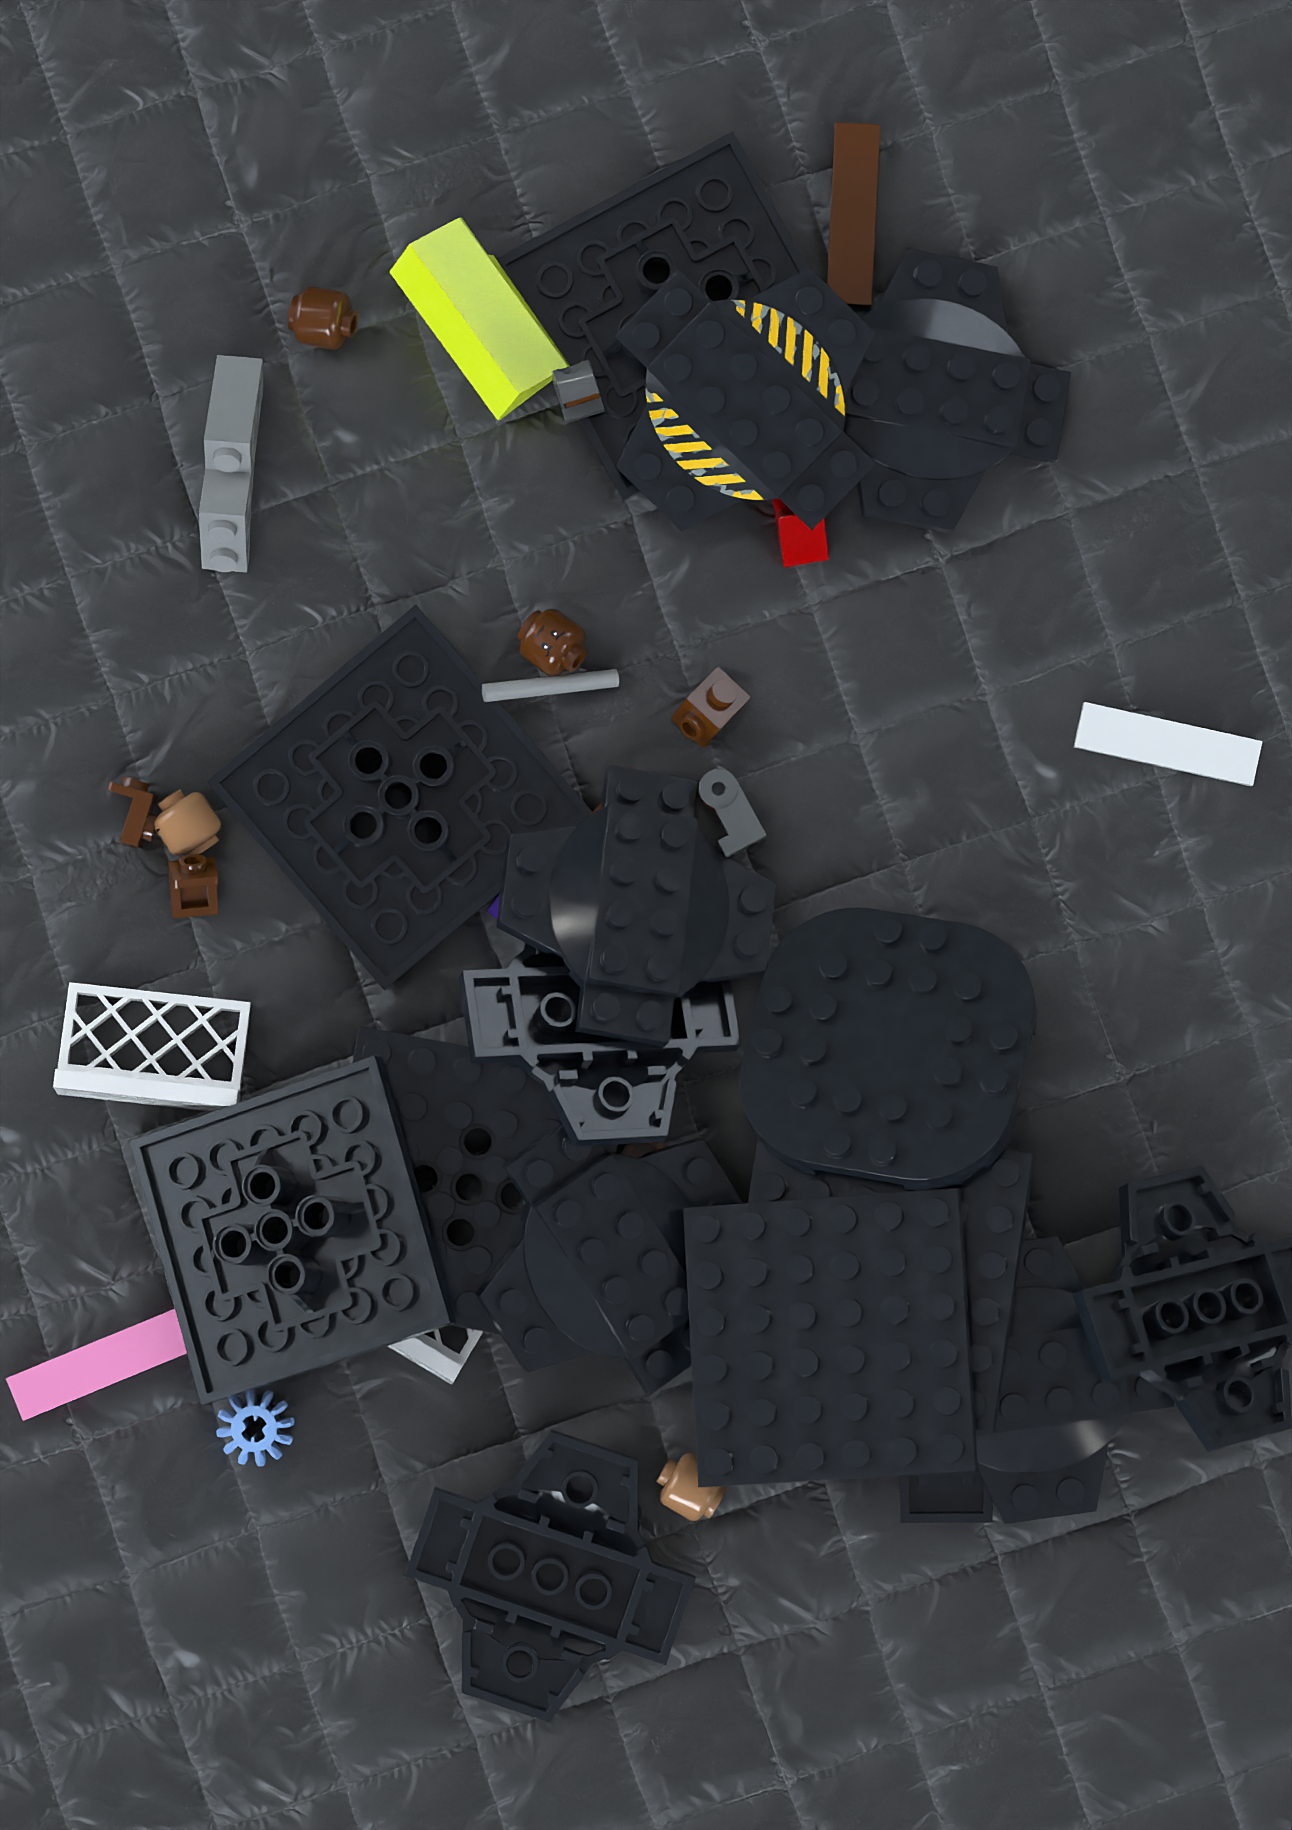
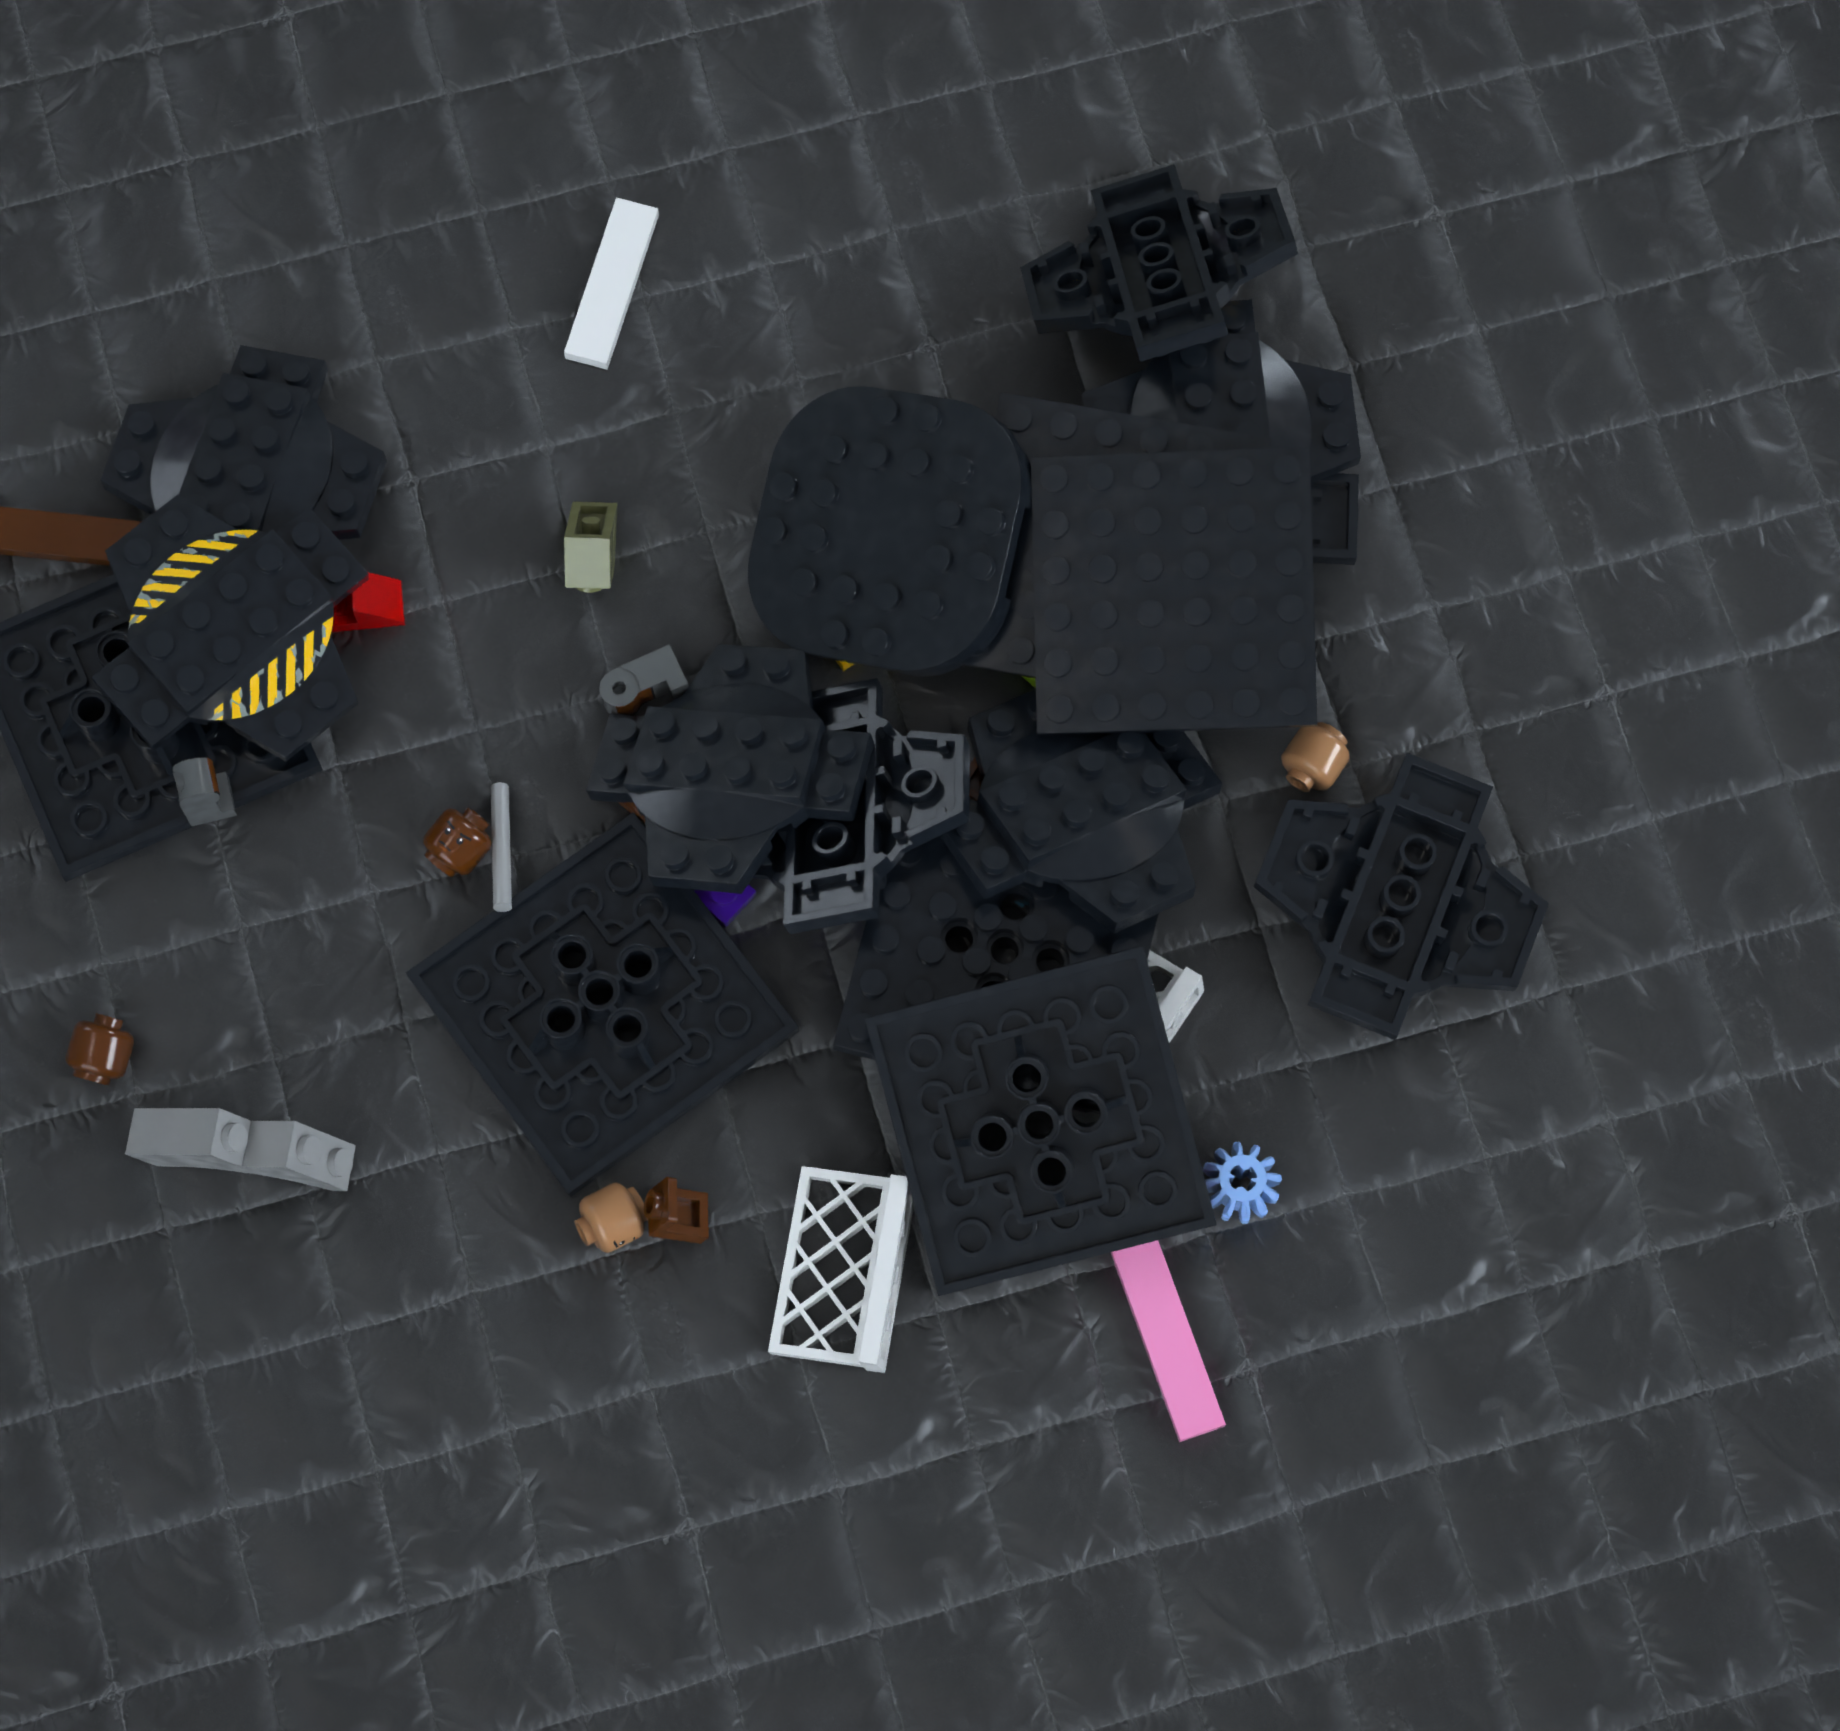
camera: 85 degrees left, 15 degrees down
(140, 819) = (605, 1264): reddish brown bracket -> none
(478, 316) = (118, 893): neon yellow slope -> none
(710, 707) = (538, 697): bracket -> none
(874, 747) = (590, 546): none -> slope

